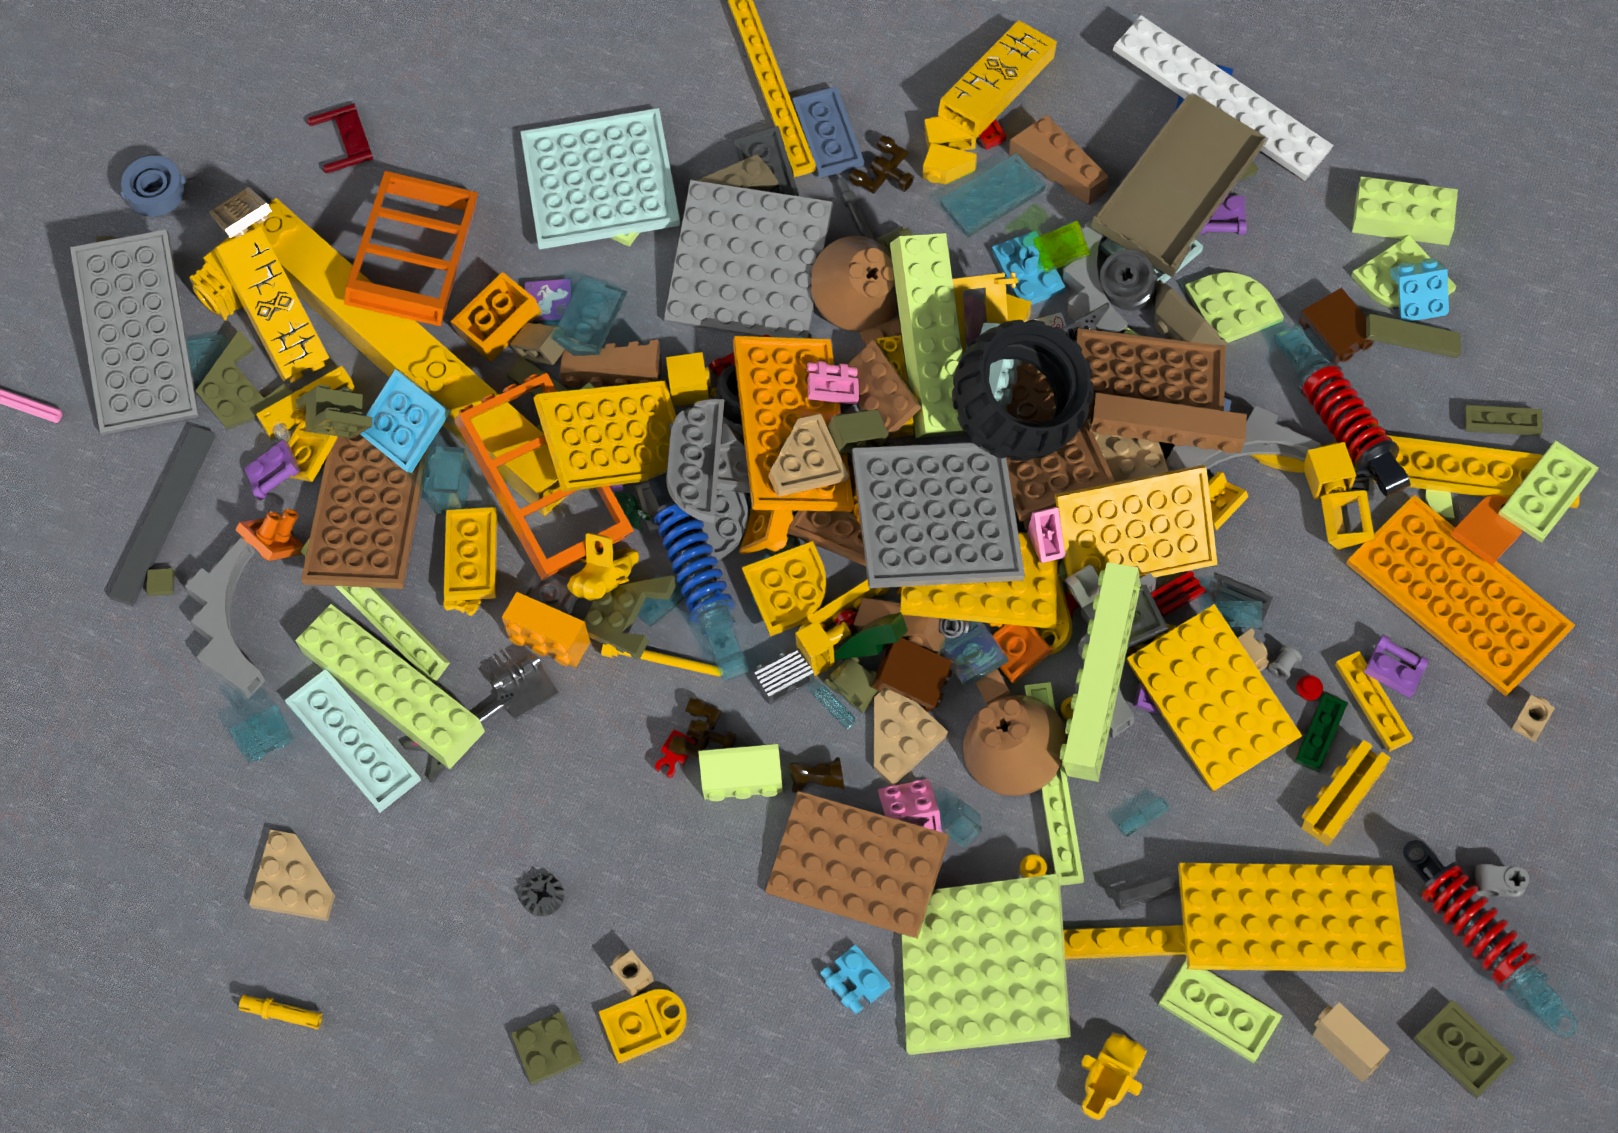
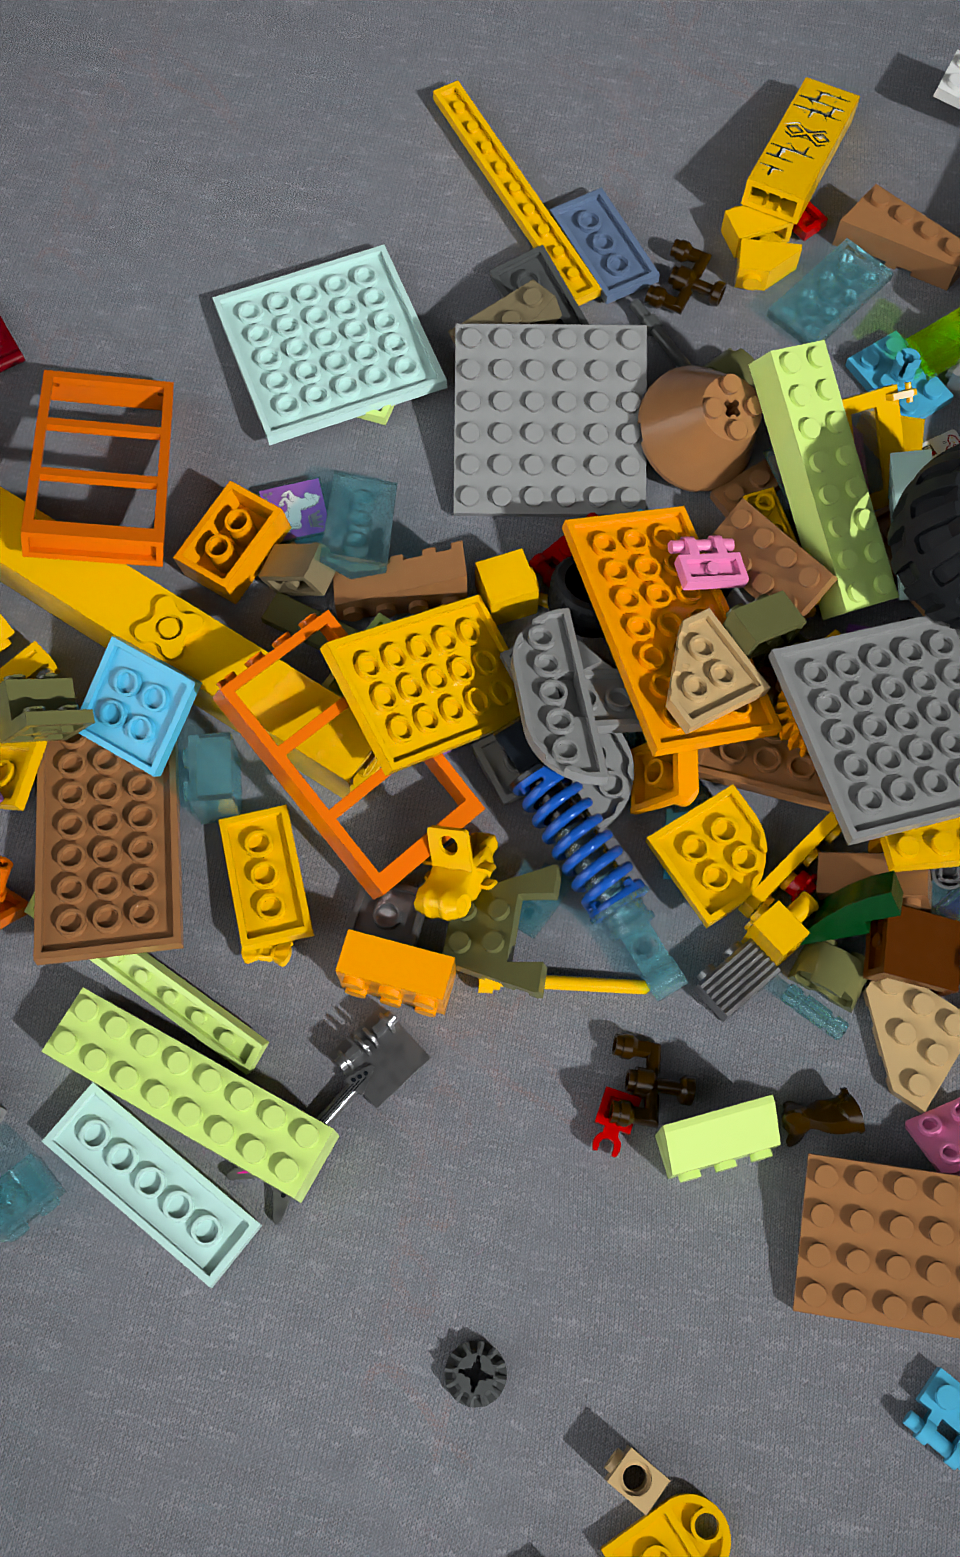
camera: 15 degrees left, 5 degrees up
(290, 880) = (101, 1420): tan plate -> none
(631, 510) = (476, 781): clear green plate -> none

